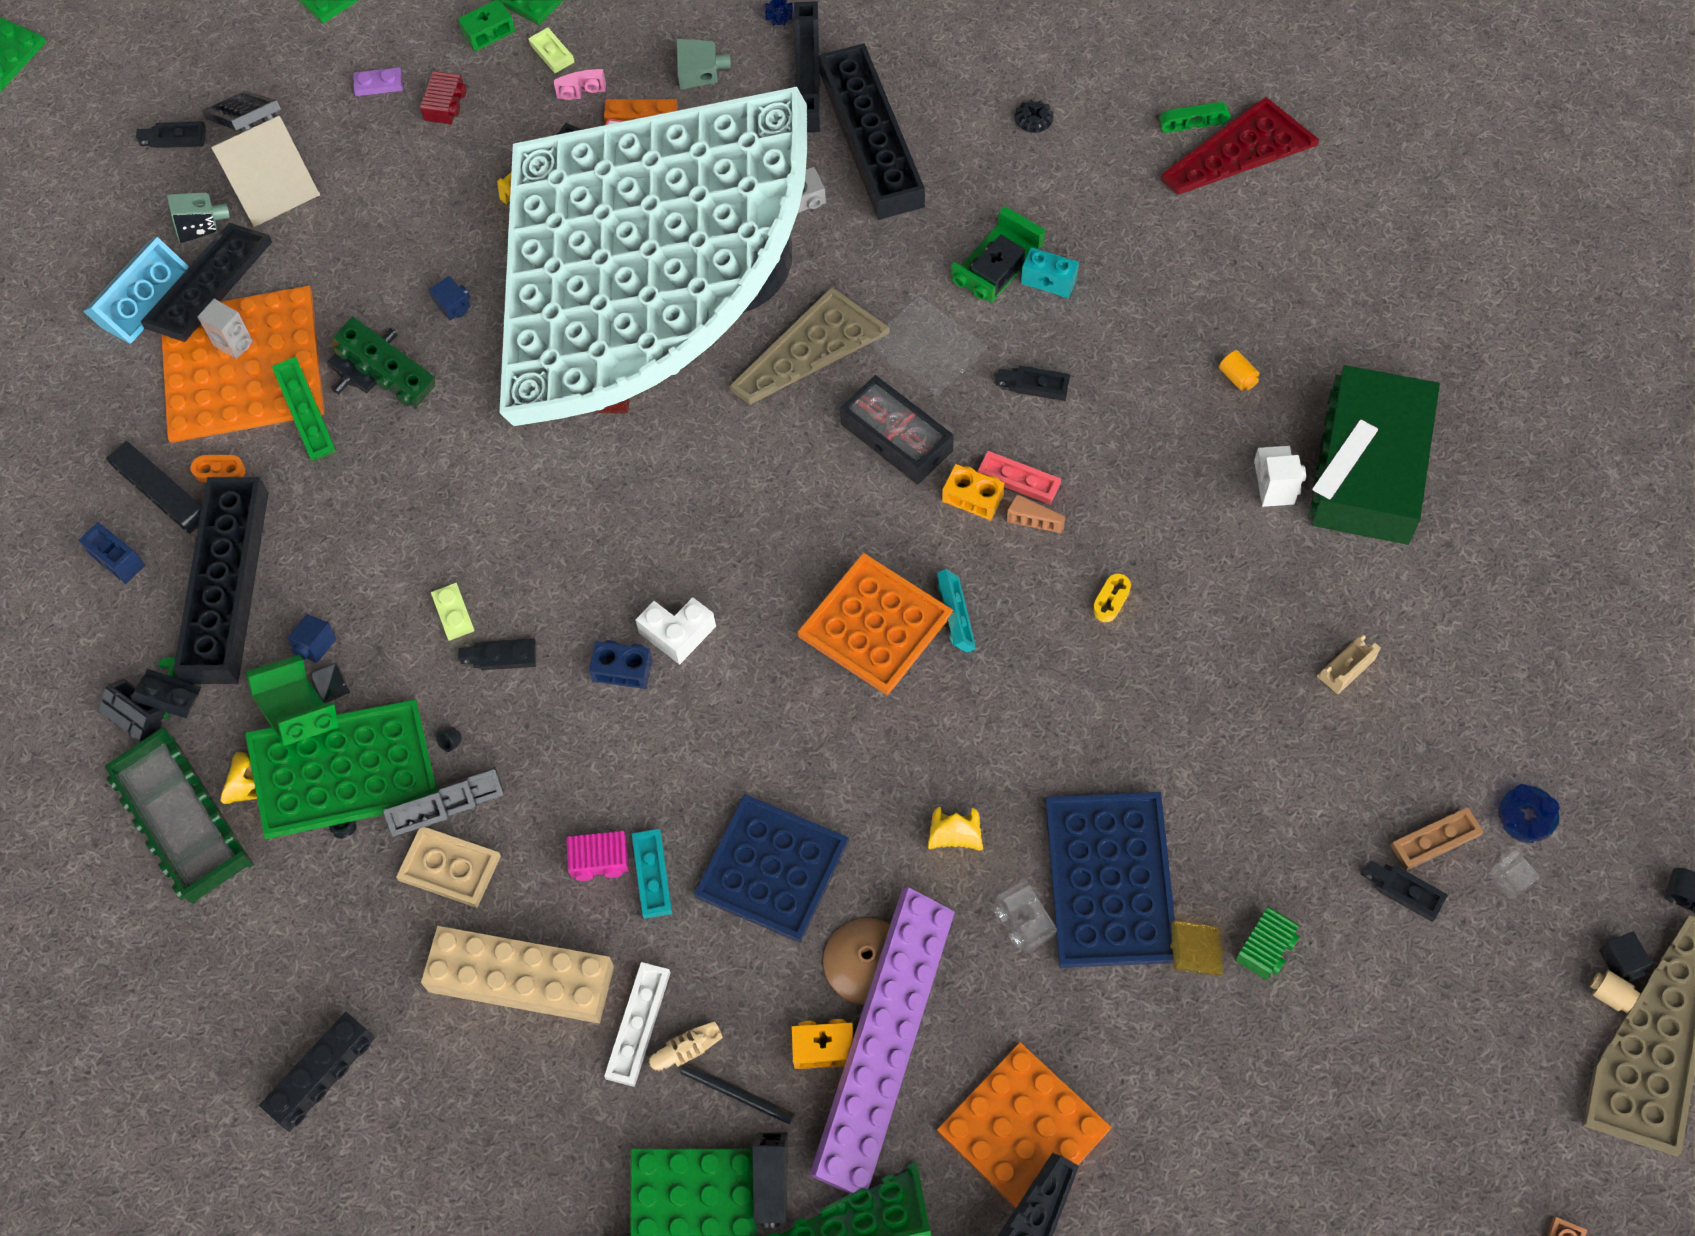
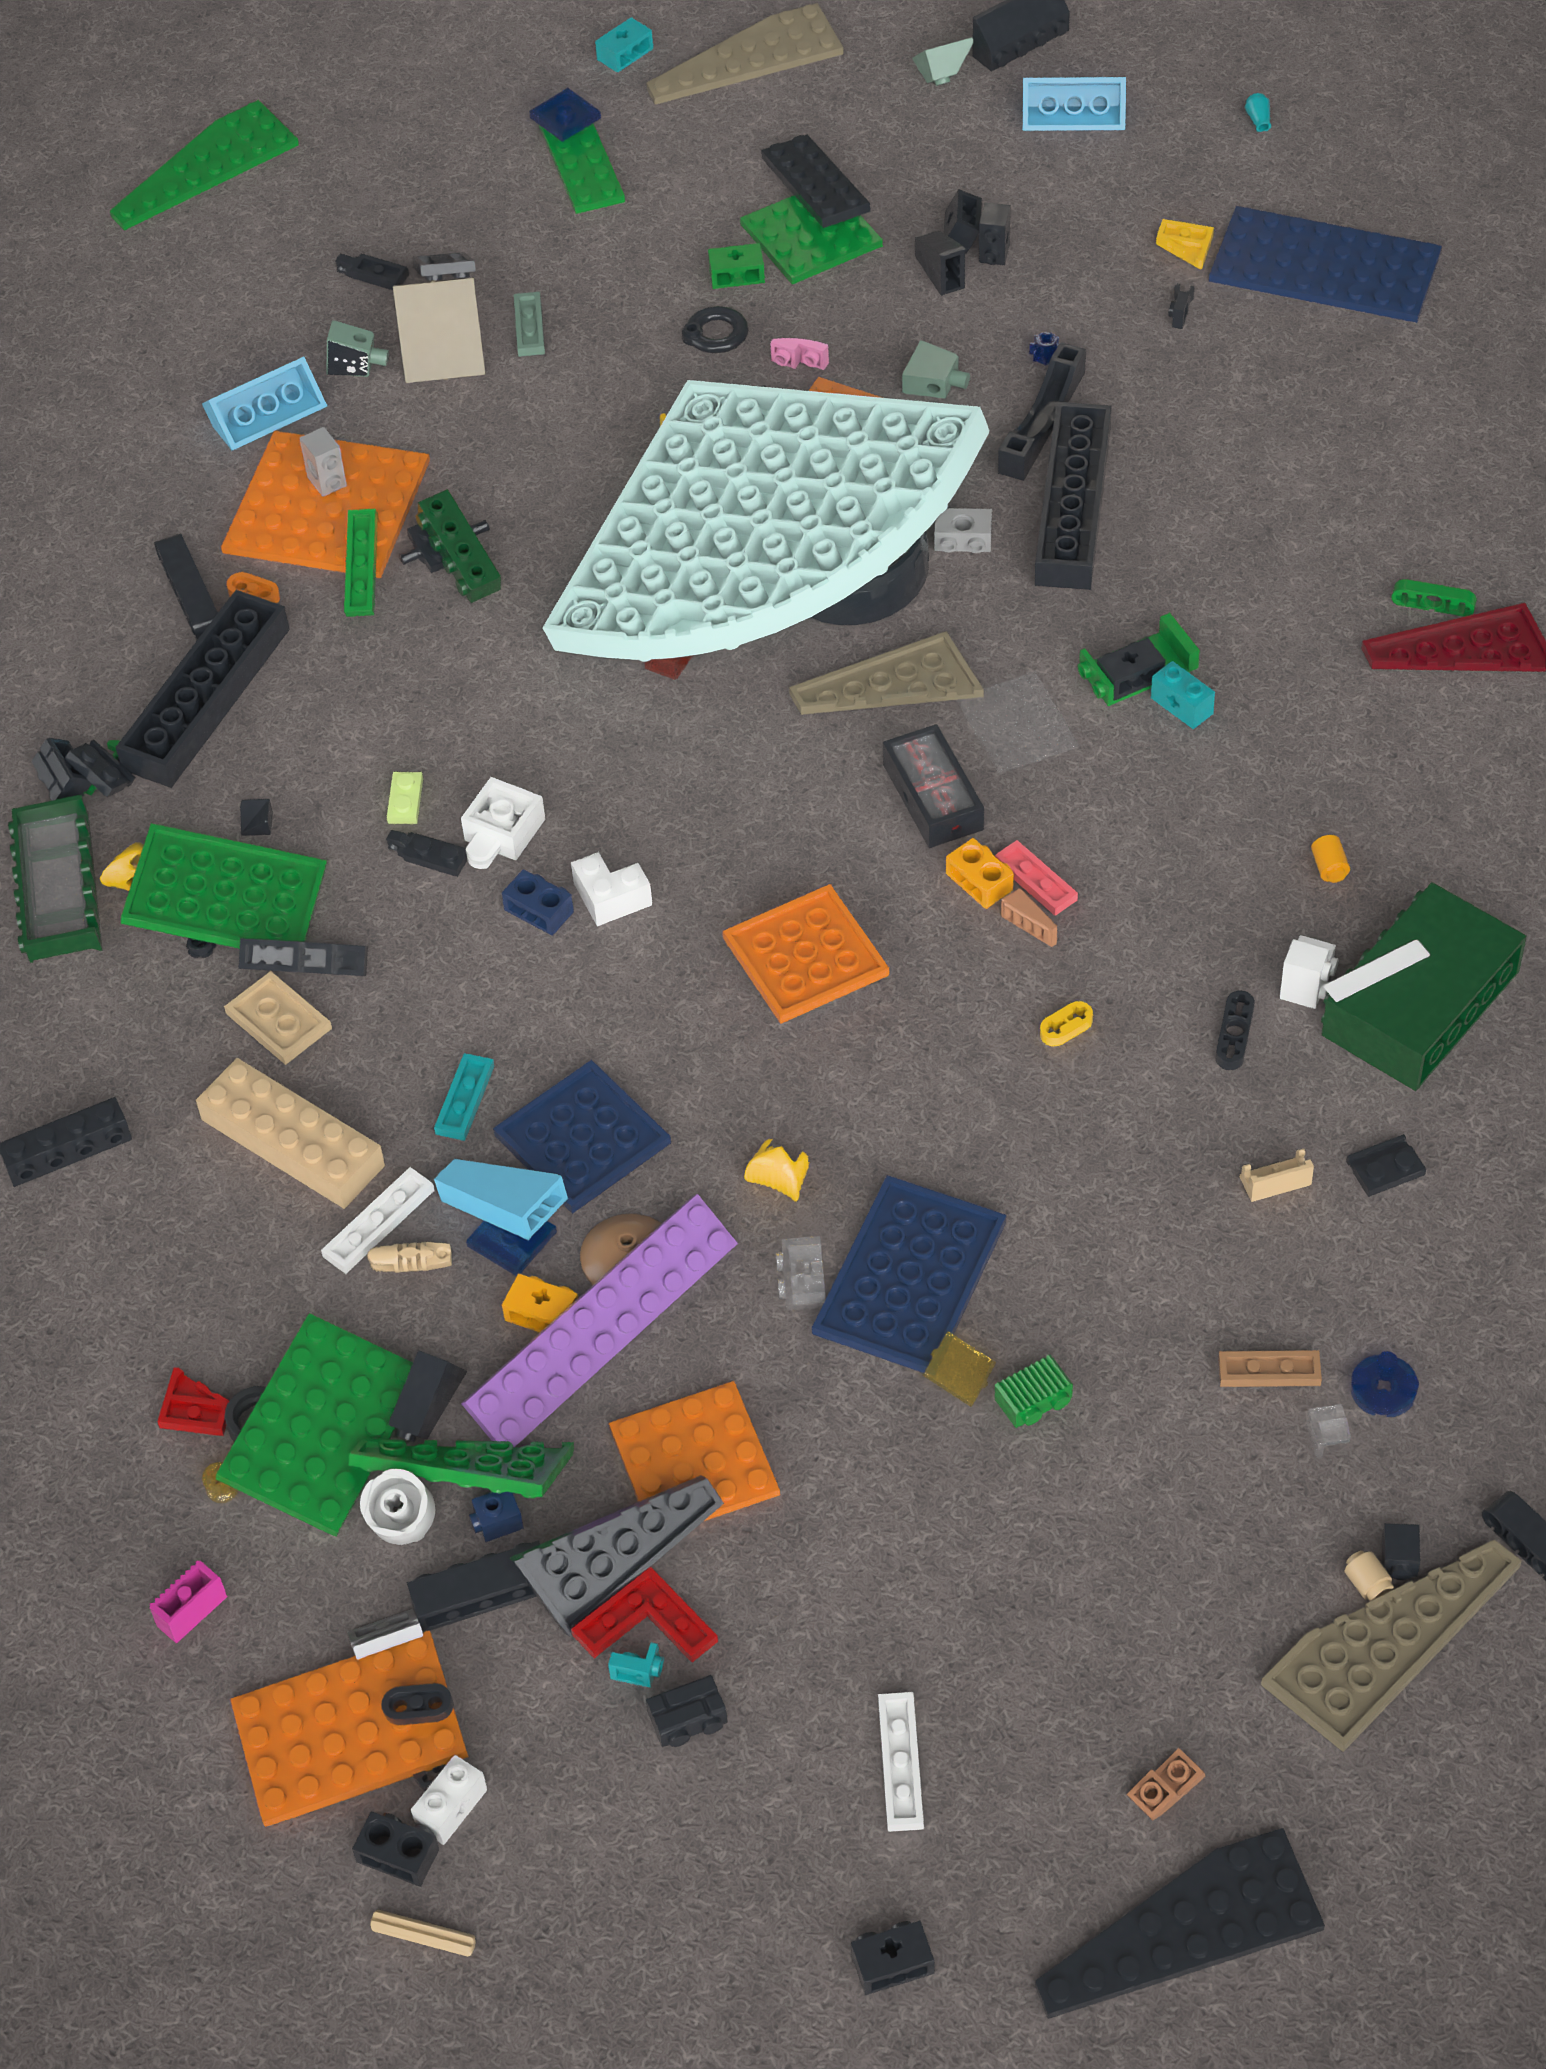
camera: 25 degrees right, 10 degrees down
(111, 553) = (115, 628): dark blue brick -> none
(206, 279) = (336, 411): black plate -> none
(290, 700) = (208, 812): green panel -> none
(311, 638) = (258, 770): dark blue brick -> none
(335, 136) = (529, 324): none -> sand green plate
(378, 81) = (599, 286): medium lavender plate -> none
(443, 97) = (654, 321): dark red brick -> none
(449, 739) = (339, 907): black hinge -> none
(450, 298) = (558, 511): dark blue brick -> none
(480, 97) = (693, 332): none -> black piece
(551, 50) = (789, 311): yellowish green plate -> none
(552, 605) = (500, 822): none -> white brick
(597, 855) = (422, 1060): dark pink brick -> none
(736, 957) = (502, 1195): none -> medium azure slope
(737, 1093) = (438, 1318): black bar -> none
(760, 987) = (507, 1248): none -> clear blue plate
(959, 623) = (896, 983): teal plate -> none
(1032, 123) = (1254, 546): black gear -> none
(1035, 382) = (1106, 794): black hinge -> none
(1249, 538) = (1231, 1019): none -> black beam
(1406, 889) = (1208, 1401): black hinge -> none
(1423, 619) = (1386, 1165): none -> black plate

